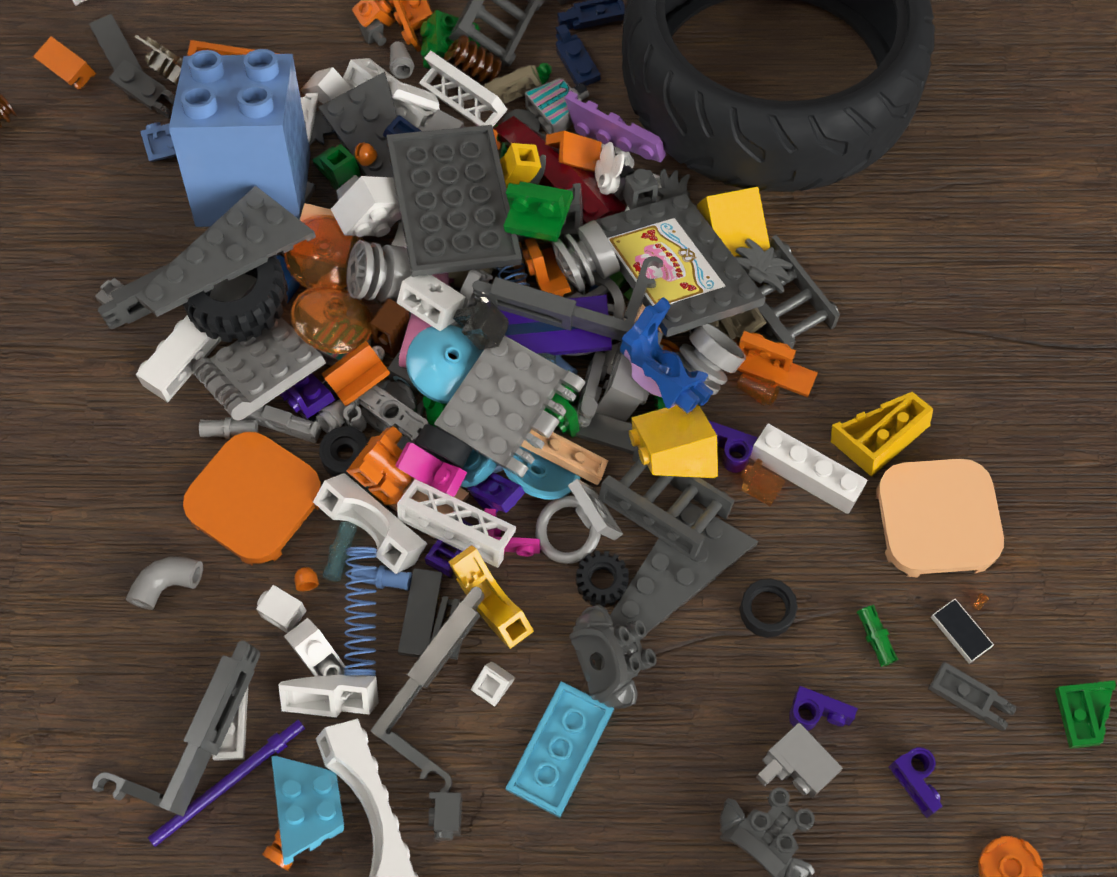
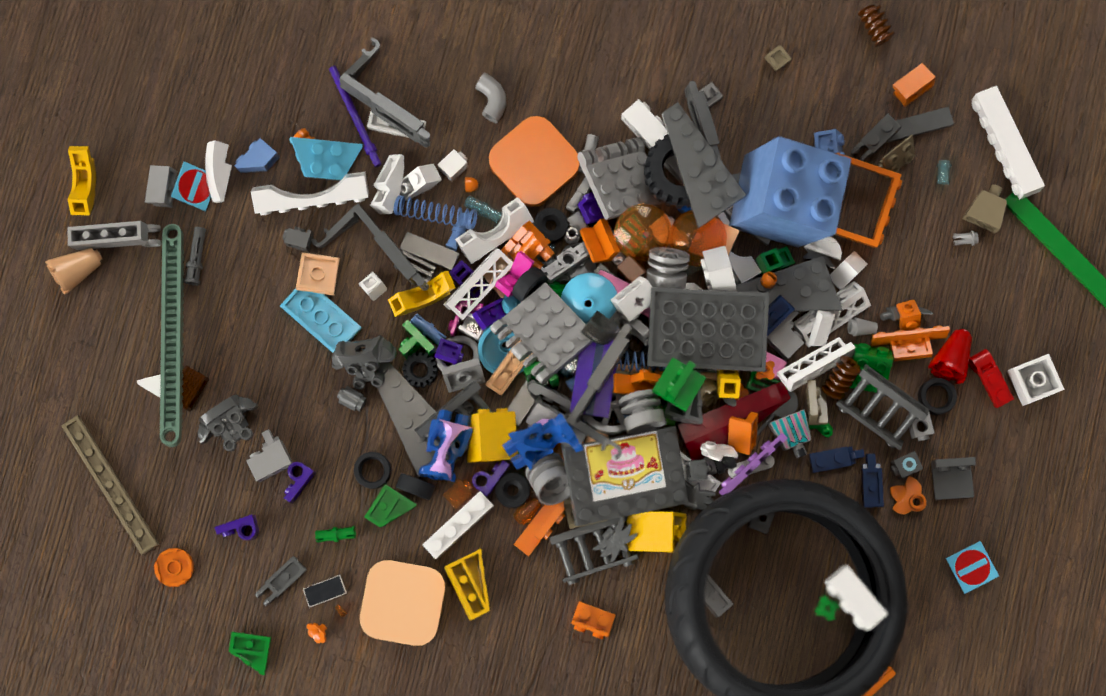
camera: 105 degrees right, 15 degrees up
(49, 223) = (778, 58): none -> dark tan plate
(177, 13) = (943, 171): none -> clear light blue pin
(495, 769) = (317, 273): none -> light nougat tile
(522, 516) = (471, 328): none -> white window
(539, 583) = (427, 329): none -> medium blue pin
(565, 588) = (416, 341): none -> bracket
(567, 539) = (449, 351): none -> dark purple bracket
(673, 664) = (351, 399): none -> dark grey brick
(696, 492) = (448, 433): none -> blue hips
(737, 398) = (523, 490): none -> black tyre
(775, 535) = (415, 486): none -> black tyre
(813, 572) = (388, 507): none -> green wing
(872, 278) = (592, 619): none -> orange bracket
(1024, 623) = (317, 632): none -> orange plant

